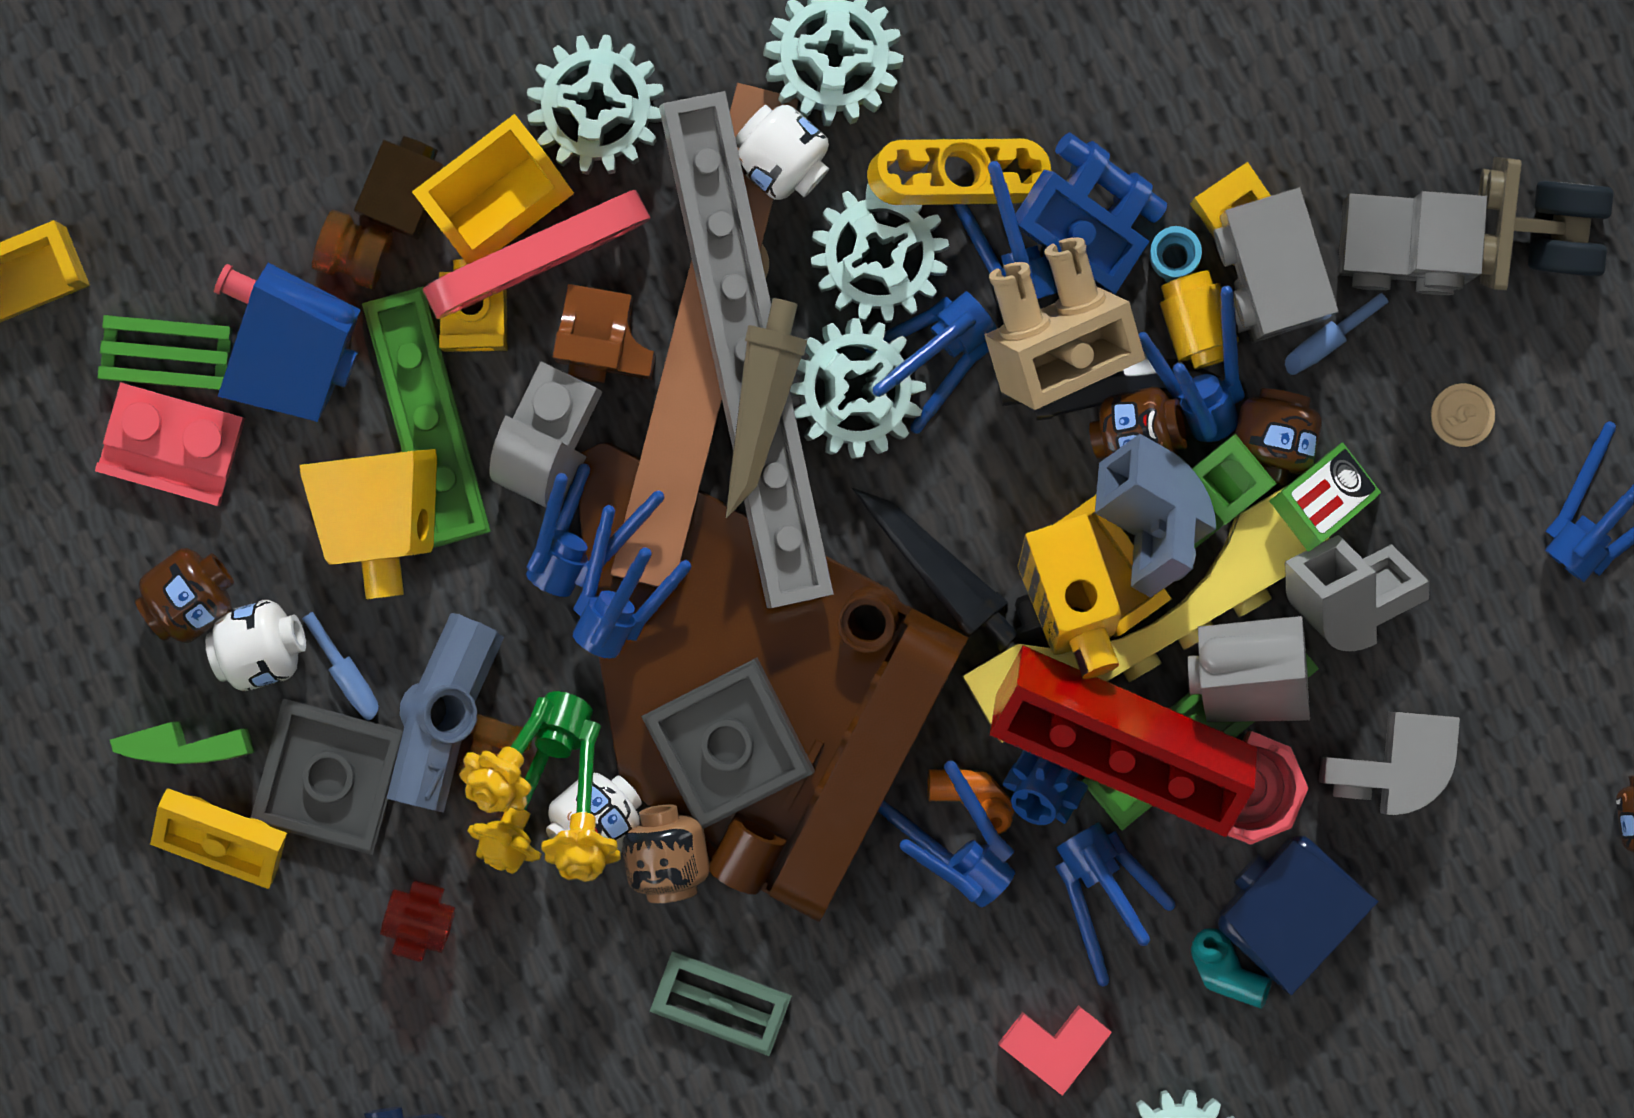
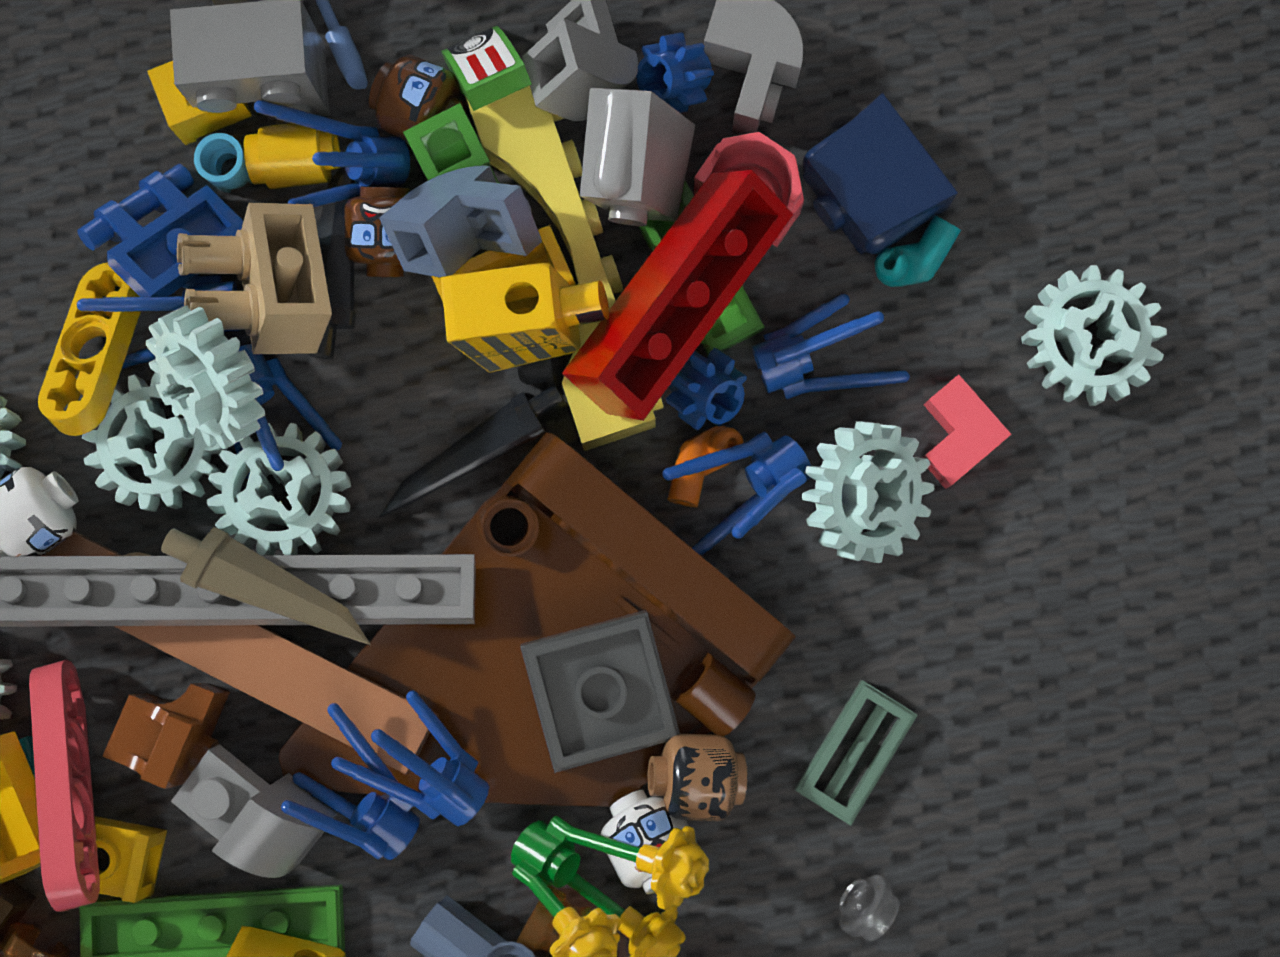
camera: 80 degrees left, 5 degrees down
(575, 1042) = (868, 908): none -> clear plate
(946, 305) = (205, 376): none -> light aqua gear
(975, 965) = (868, 492): none -> light aqua gear
(1360, 687) = (675, 71): none -> blue gear

